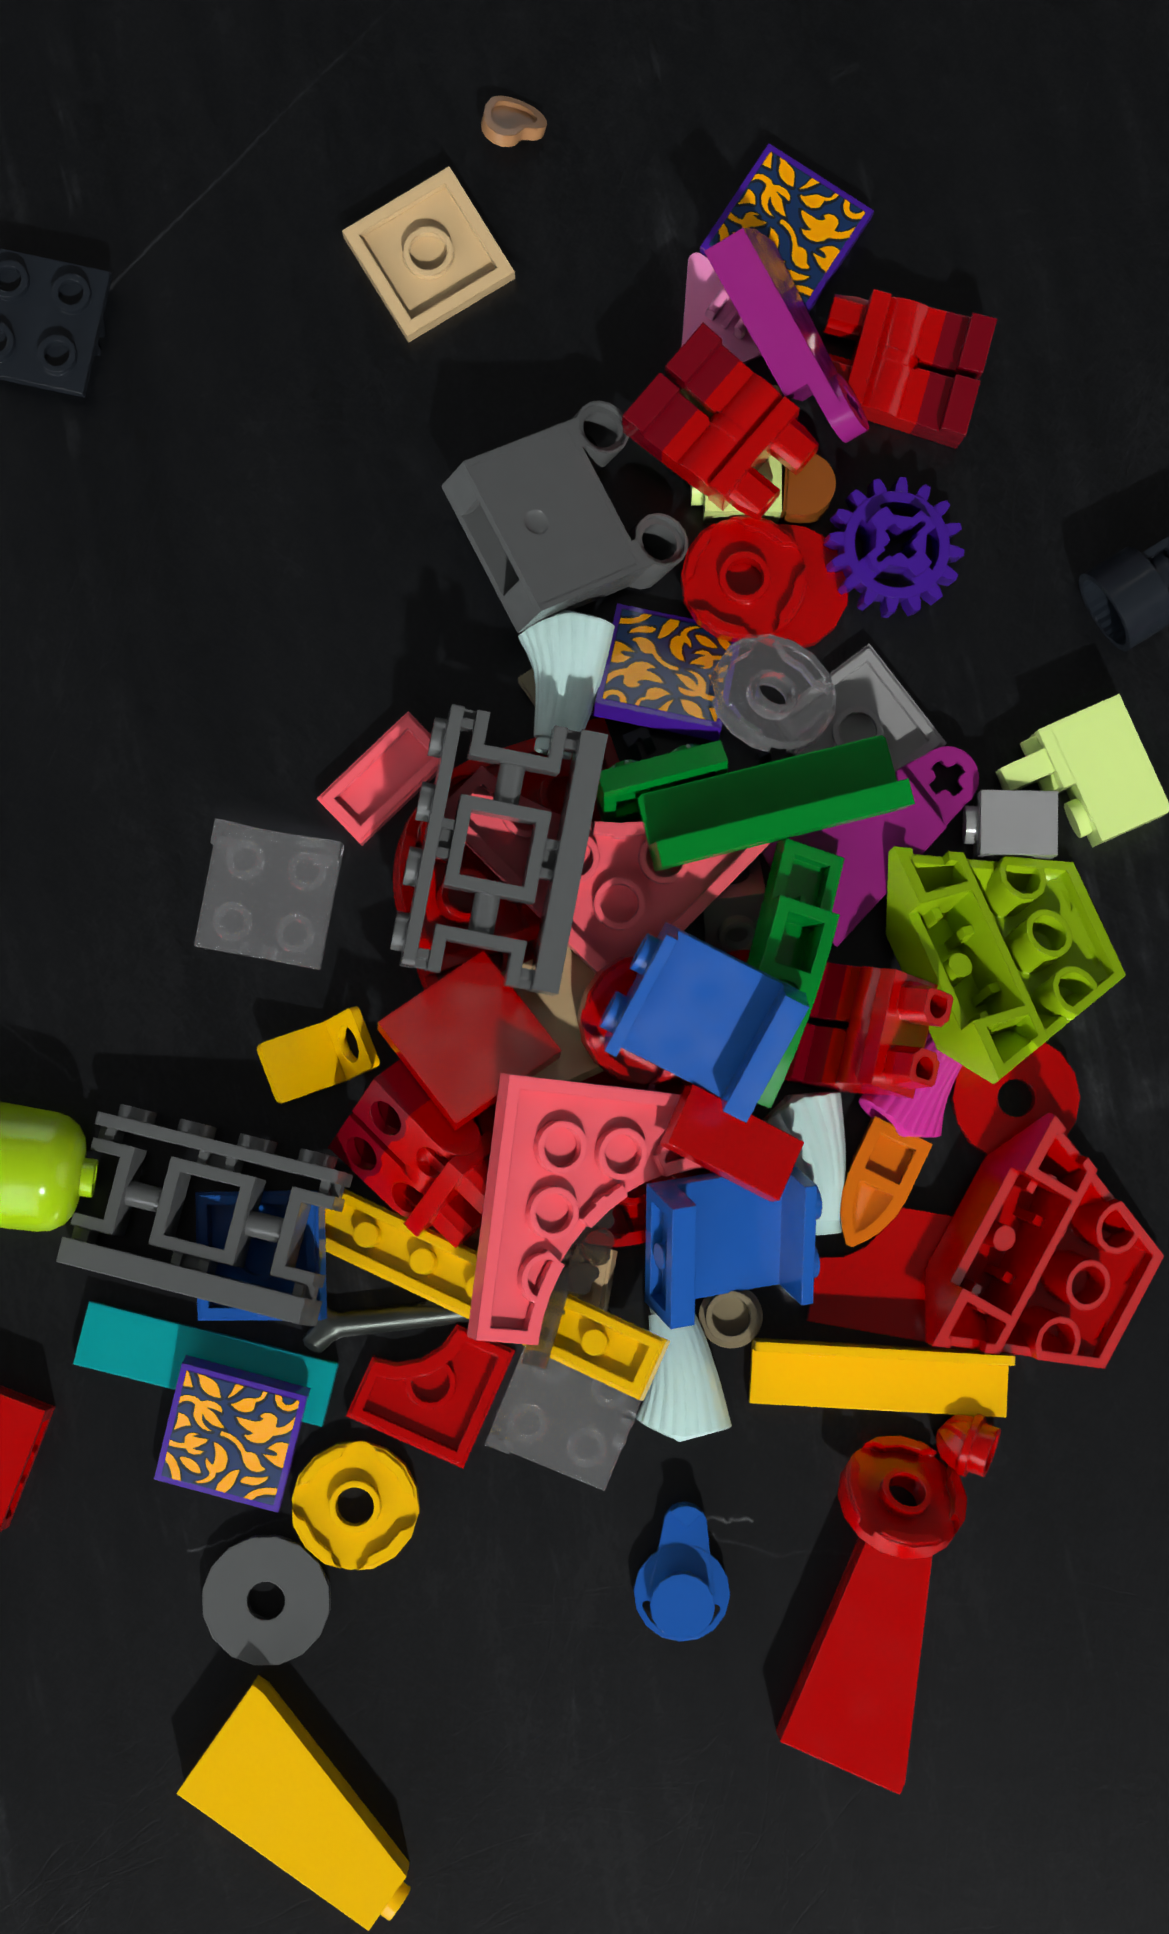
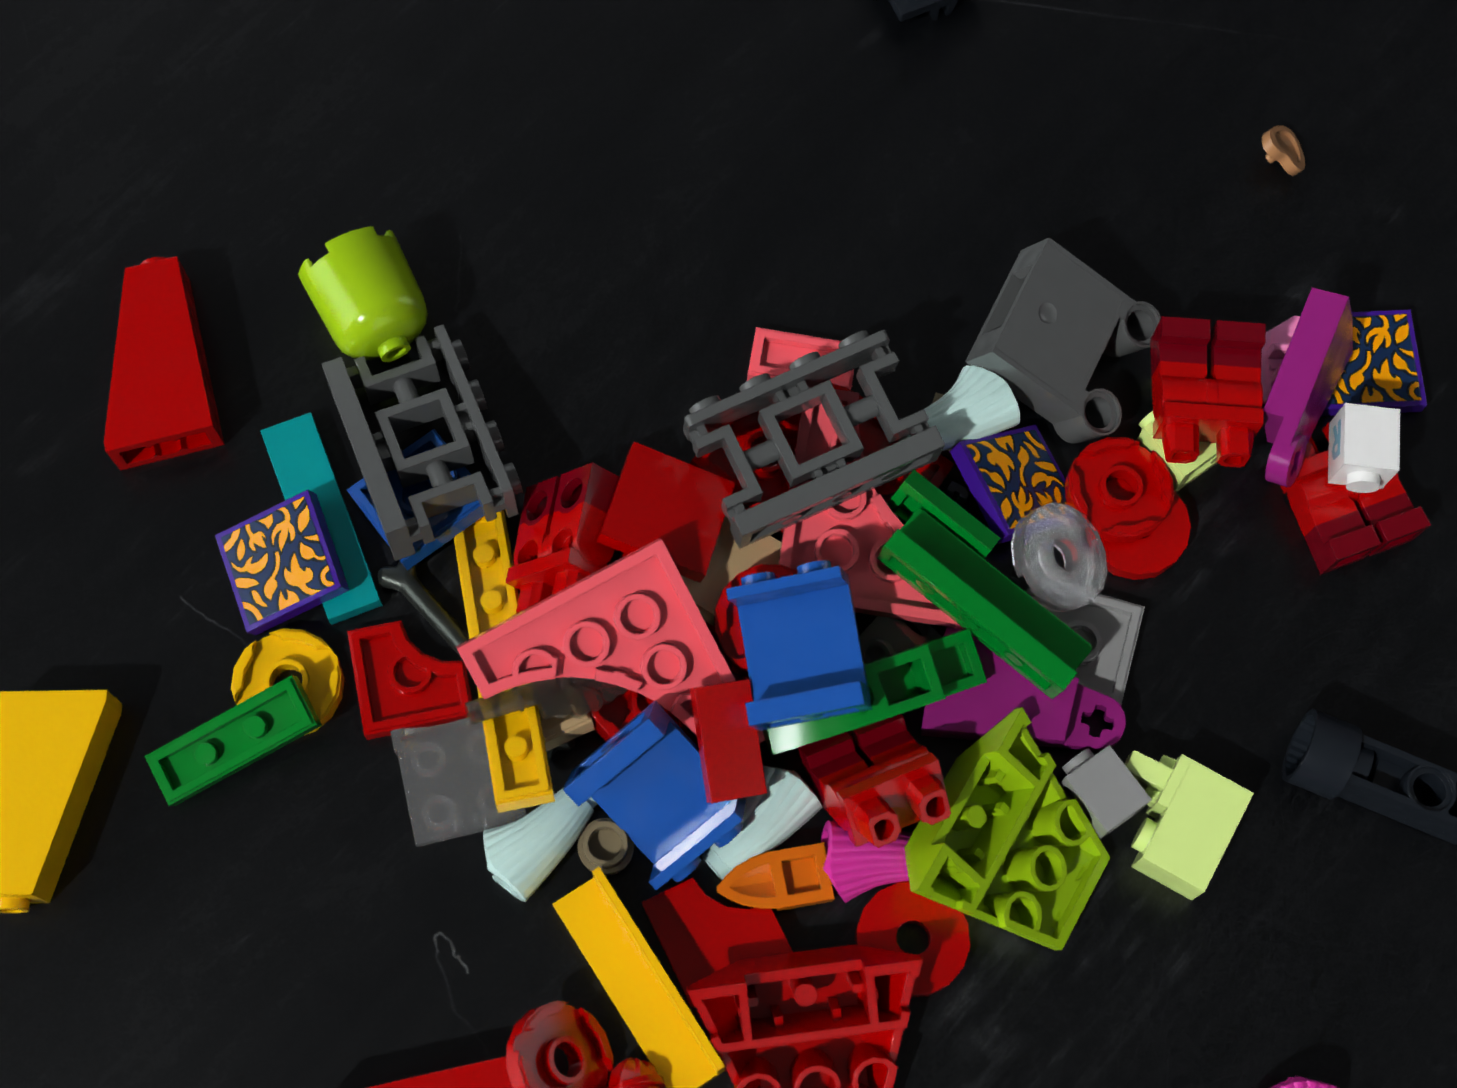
camera: 55 degrees right, 15 degrees down
(239, 1627) = (161, 643): dark grey tile -> none
(269, 894) = (670, 340): clear piece -> none
(317, 1056) = (580, 439): yellow bracket -> none
(381, 1595) = (233, 740): none -> green tile
(428, 254) = (1159, 160): tan tile -> none
(682, 1578) = (389, 947): blue piece -> none
(807, 493) = (1210, 490): dark orange brick -> none
(878, 528) = (1203, 585): dark purple gear -> none
(886, 326) = (1364, 447): none -> white brick

